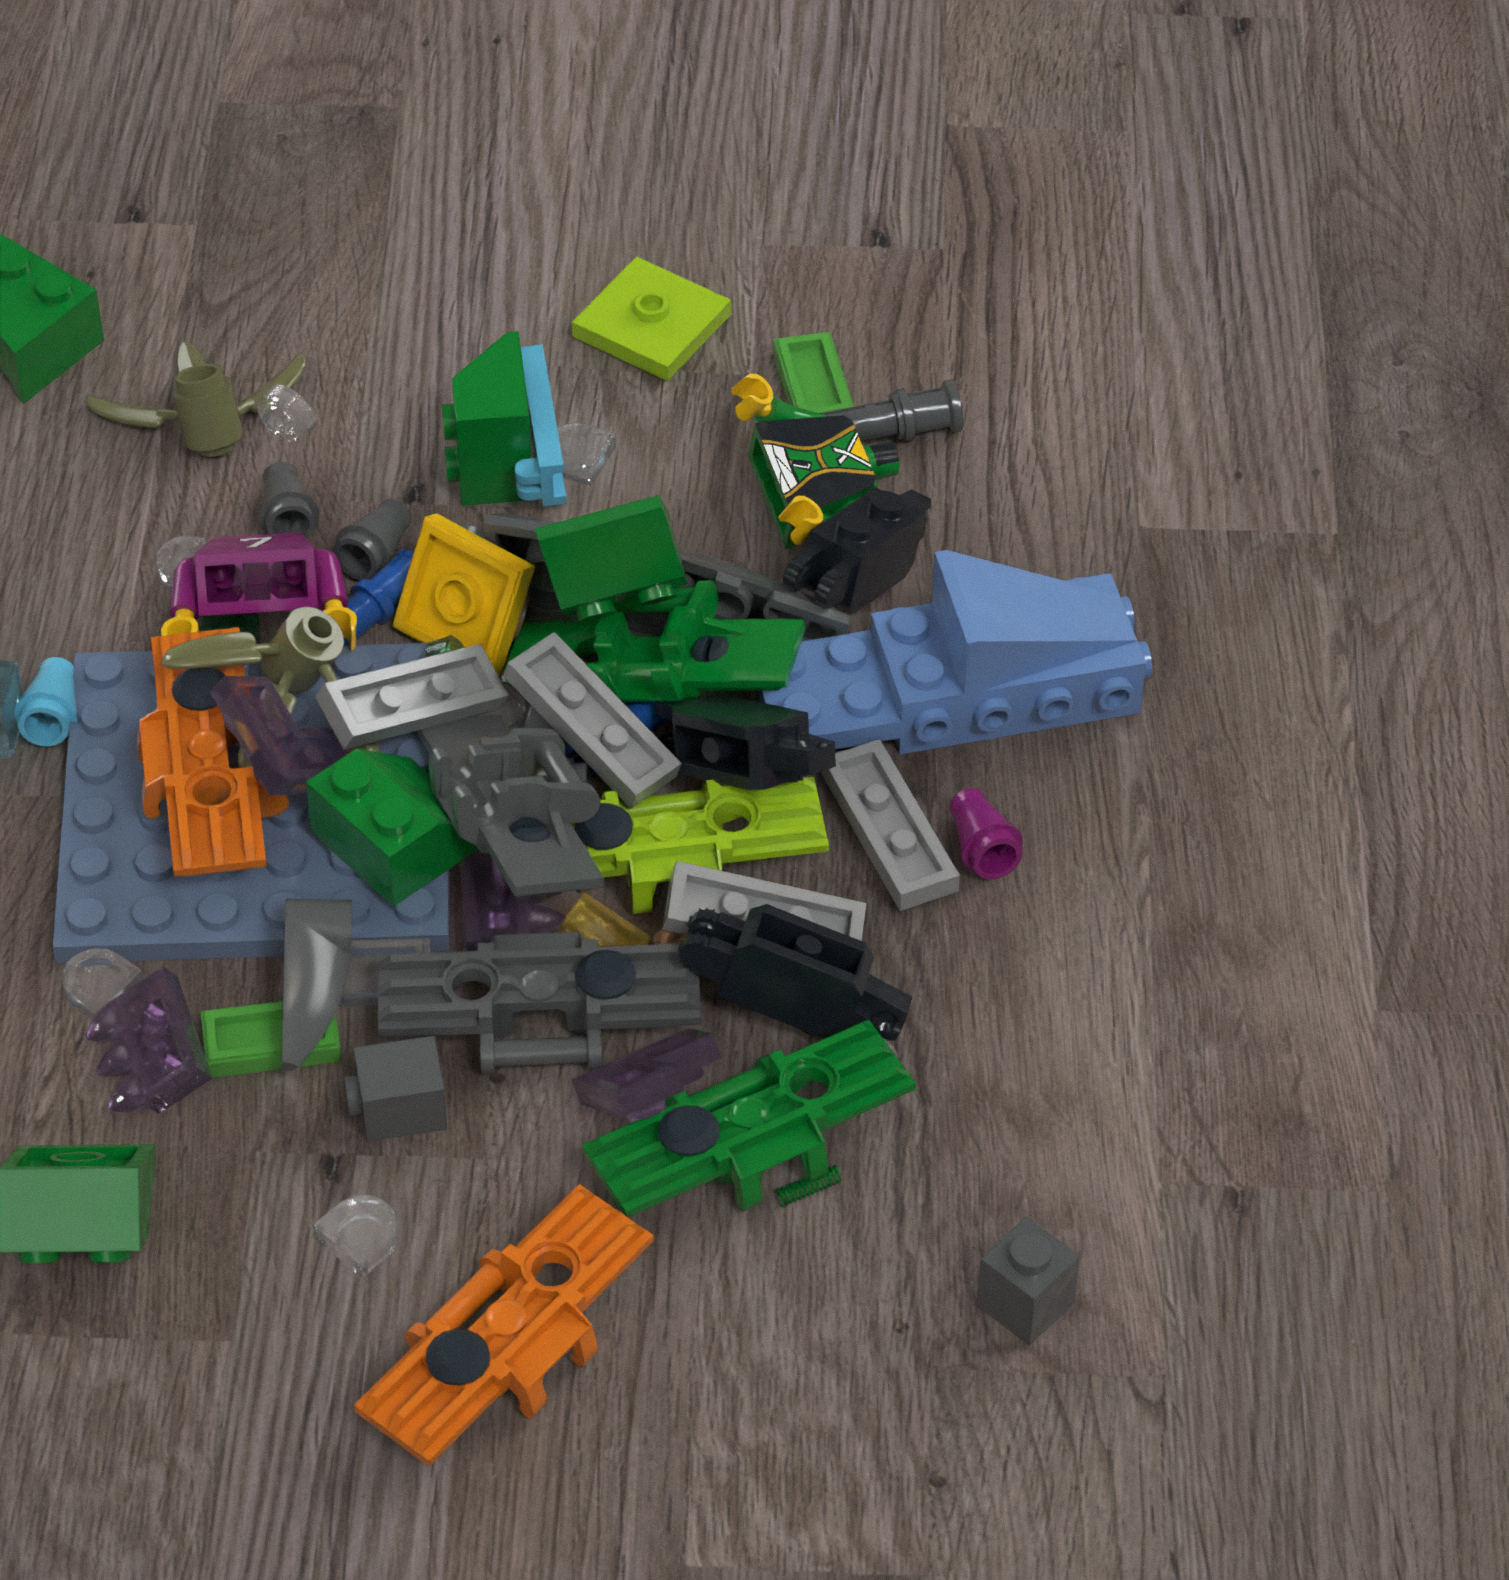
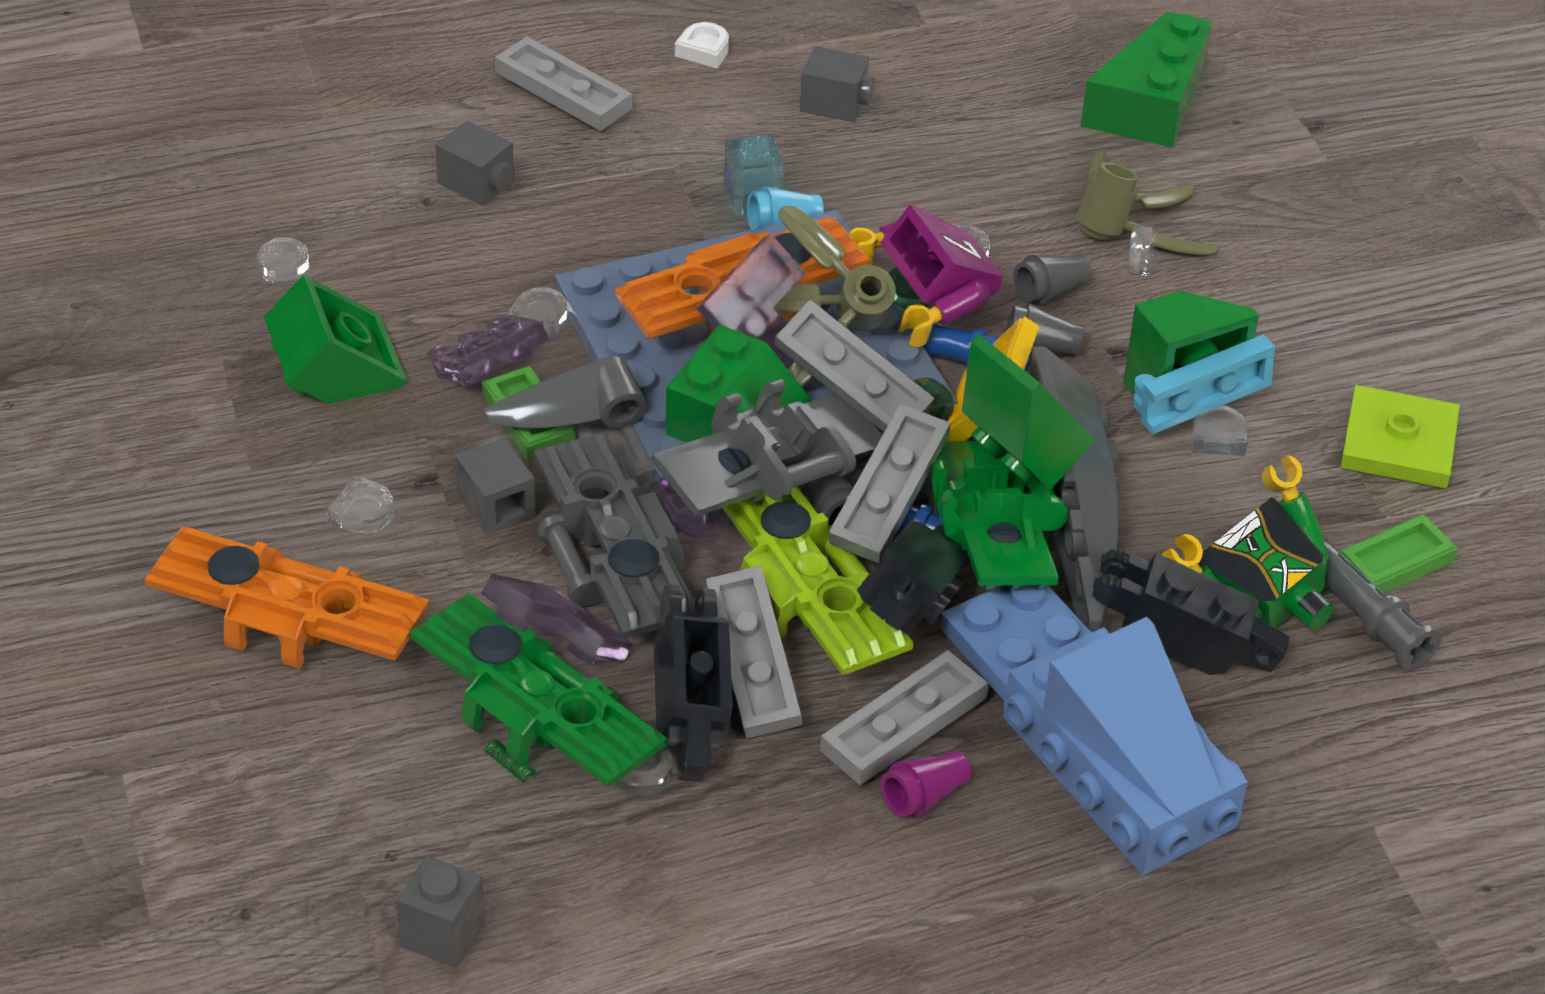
camera: 70 degrees right, 5 degrees down
(602, 924) = (701, 559): clear yellow piece -> none

